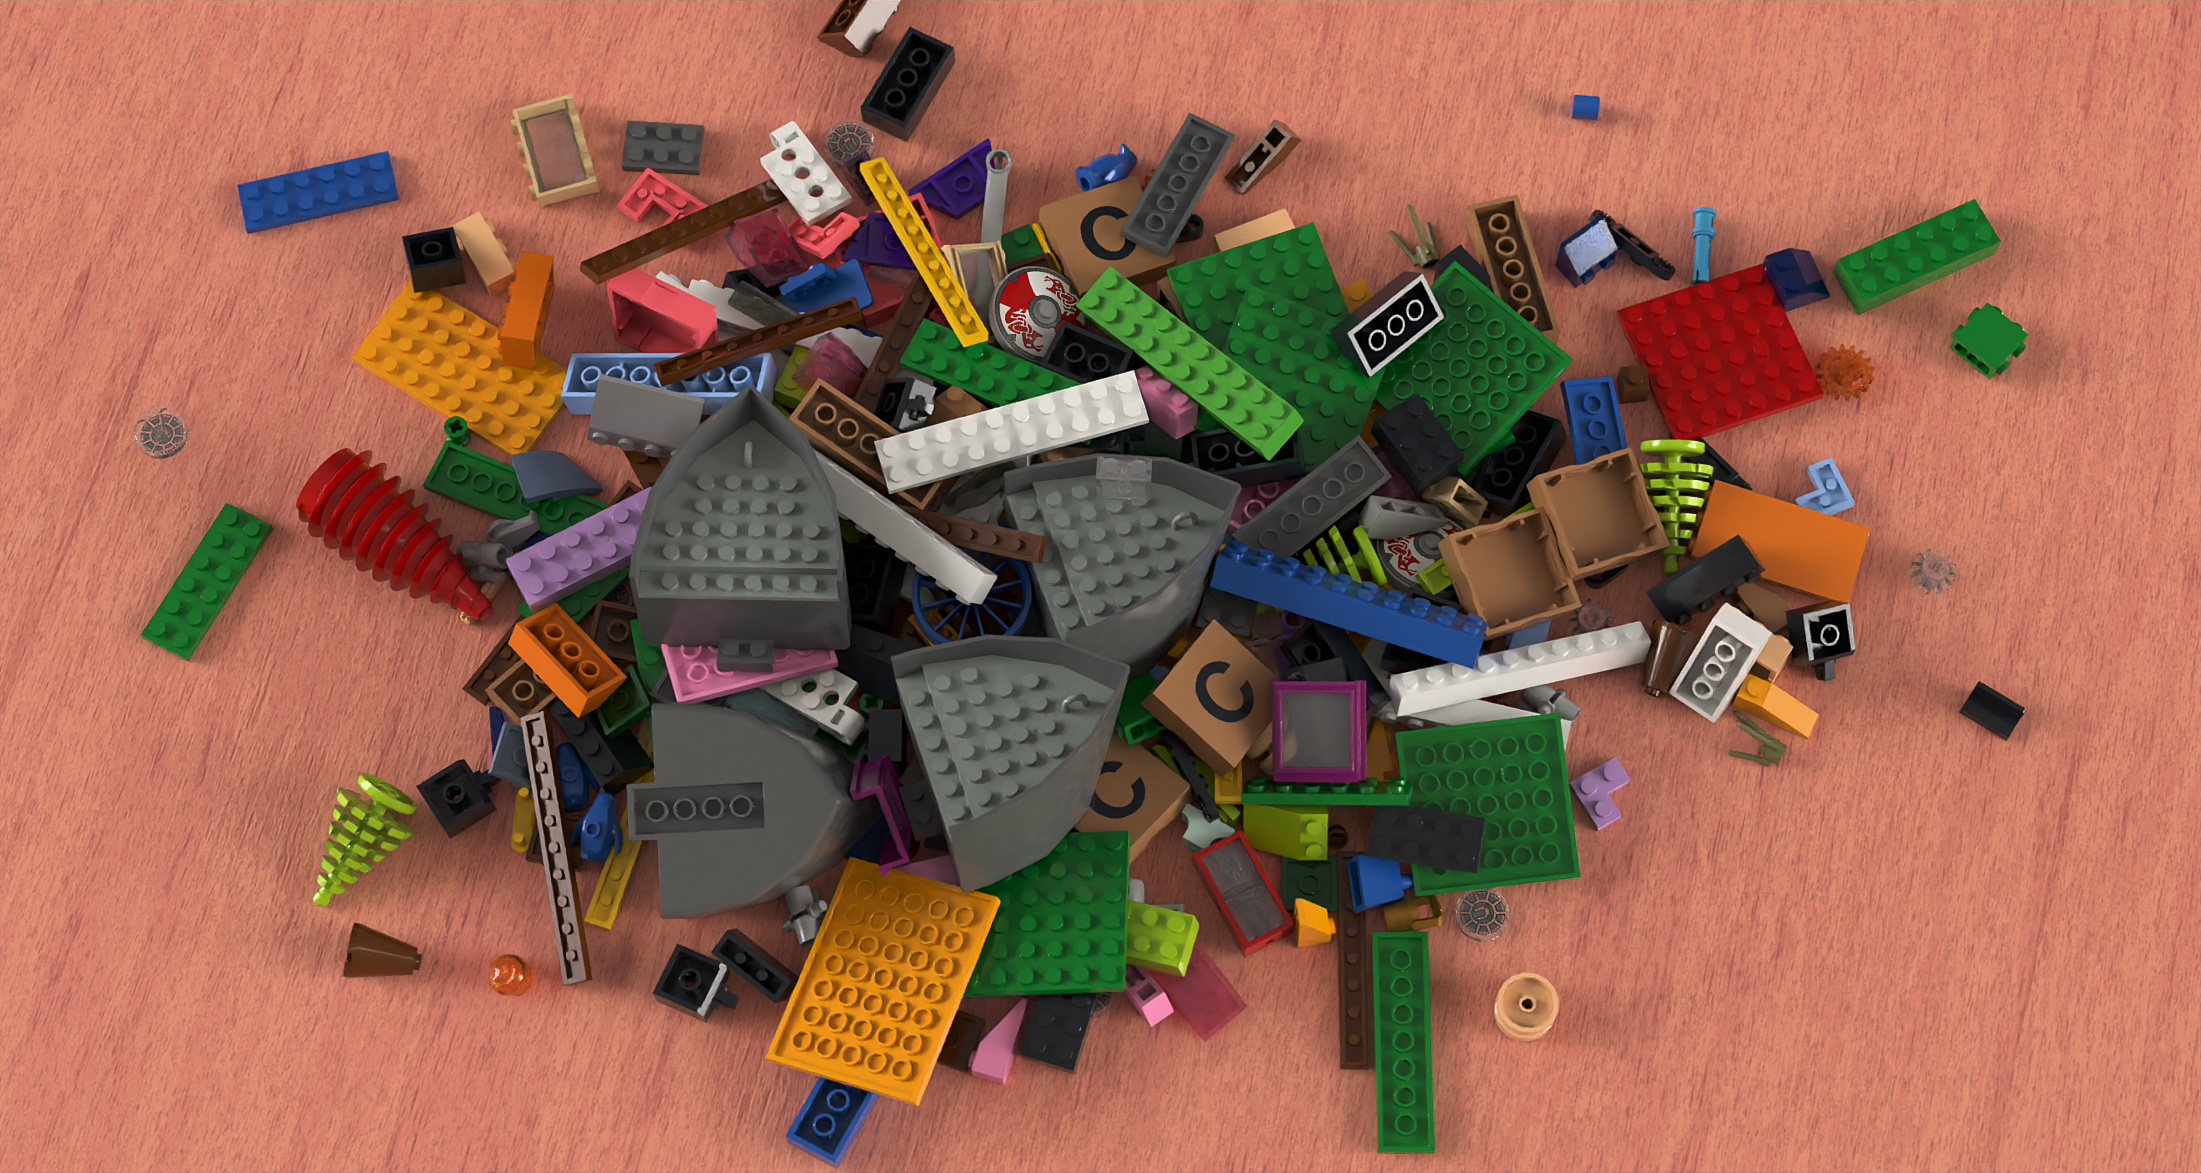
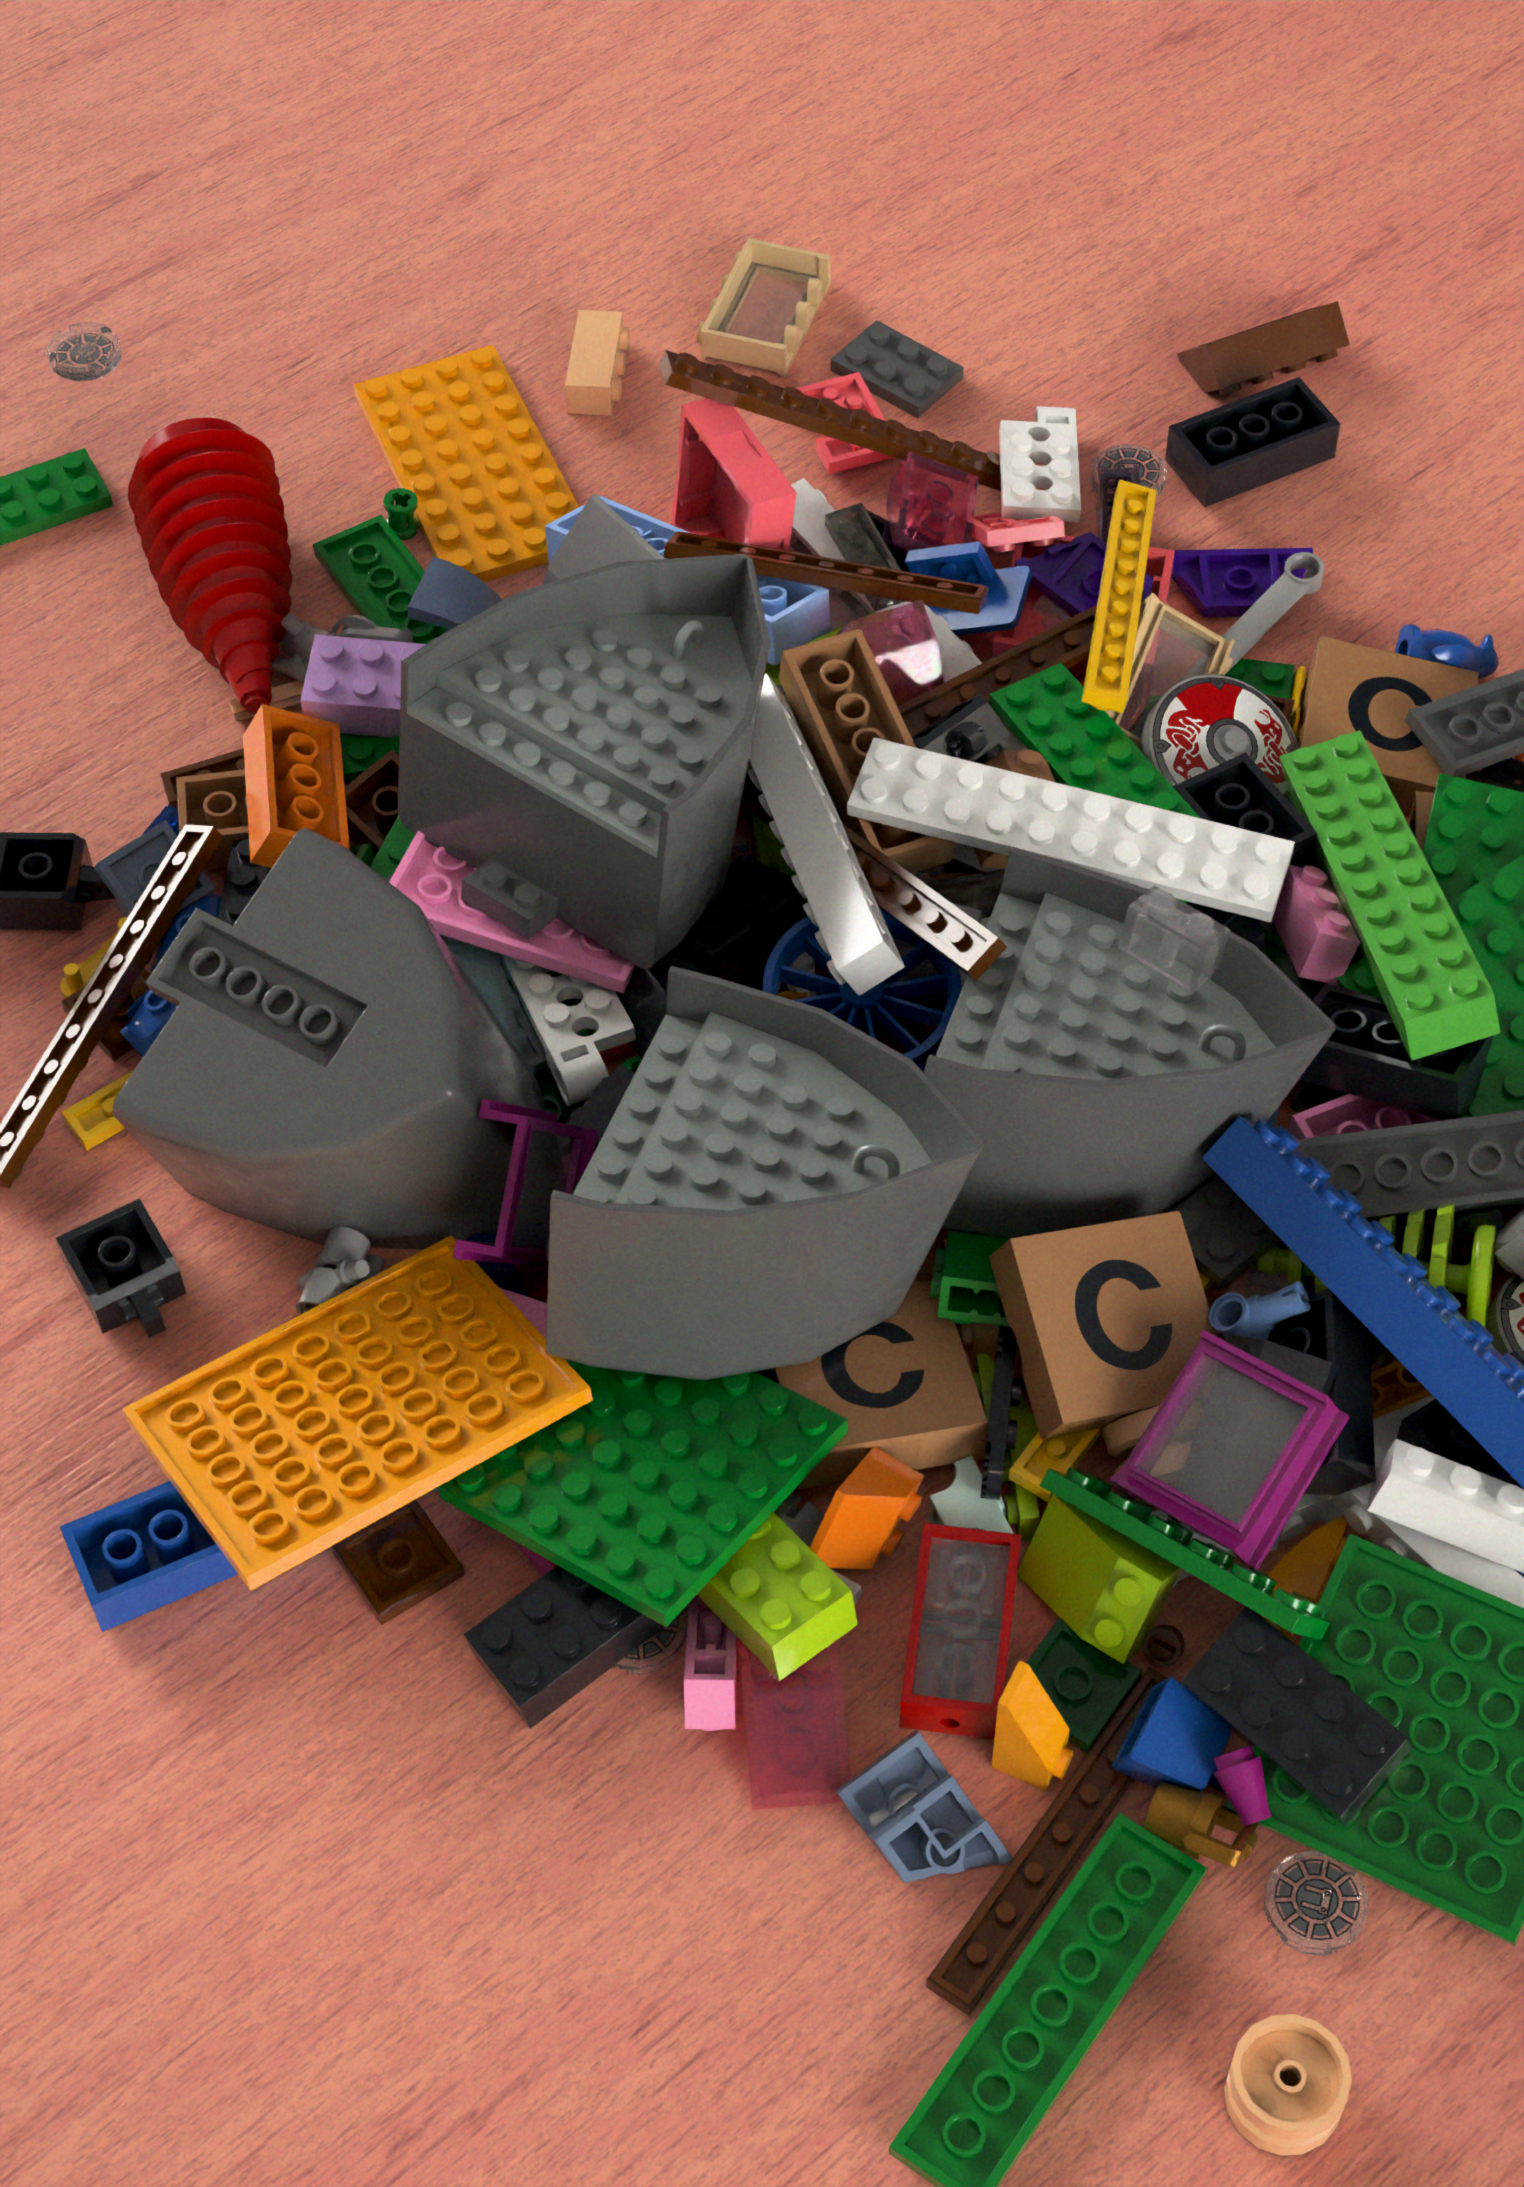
camera: 35 degrees right, 15 degrees down
(318, 192) = (466, 221): blue plate -> none
(433, 259) = (527, 331): black brick -> none
(527, 310) = (586, 426): orange brick -> none
(755, 965) = (216, 1289): black brick -> none
(997, 1049) = (436, 1616): bright pink slope -> none
(1162, 866) = (868, 1513): none -> orange slope
(1283, 993) = (920, 1814): none -> sand blue slope
(1284, 647) = (1257, 1315): none -> medium blue pin
(1418, 881) = (1244, 1784): none -> magenta cone

